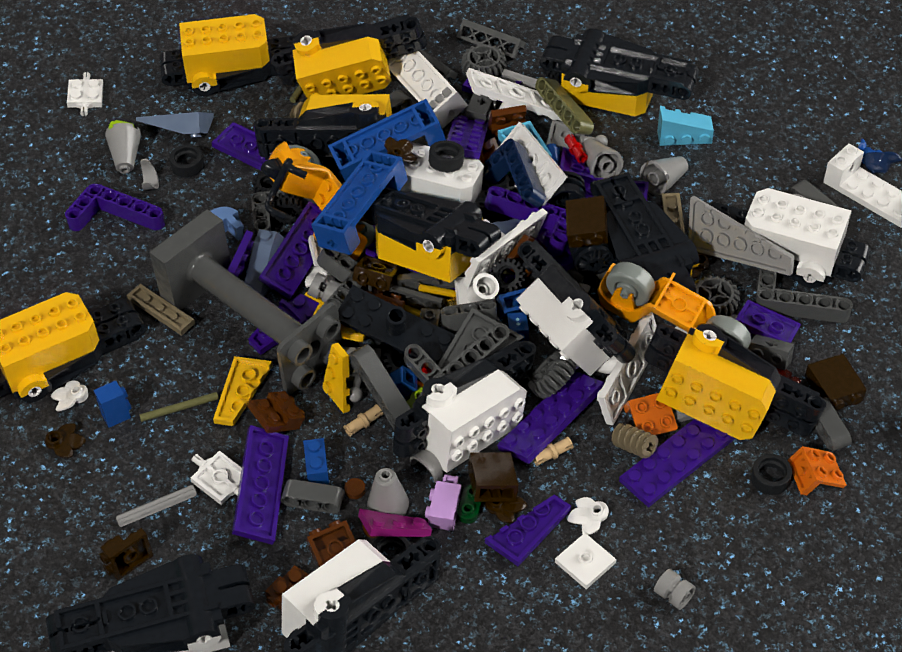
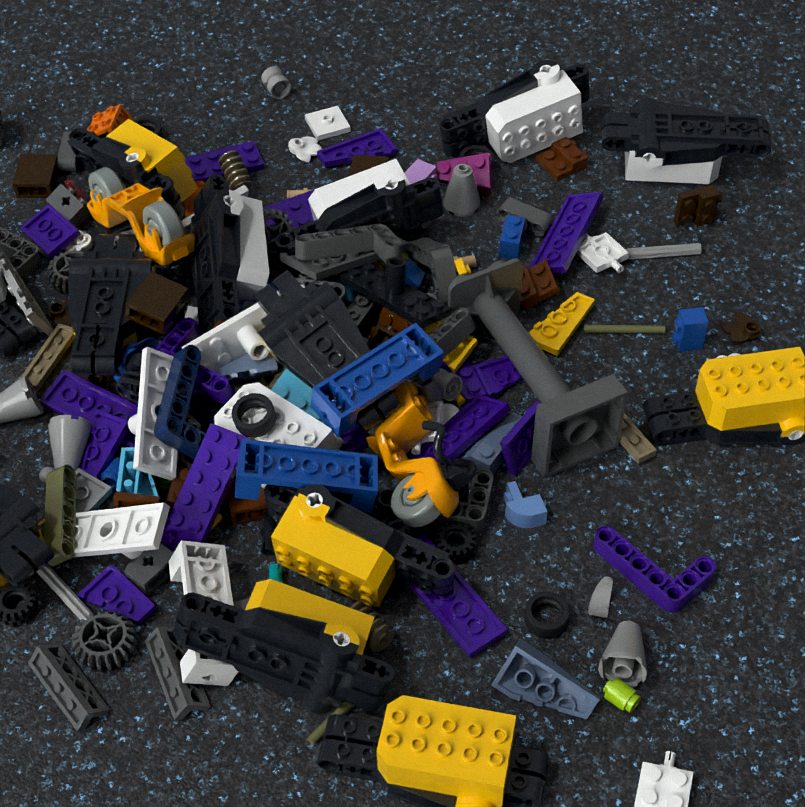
camera: 160 degrees left, 0 degrees up
(330, 541) = (521, 176): reddish brown plate -> none
(355, 488) = (485, 217): reddish brown tile -> none
(401, 148) = (304, 432): dark brown plate -> none
(575, 148) = (87, 457): red pin -> none

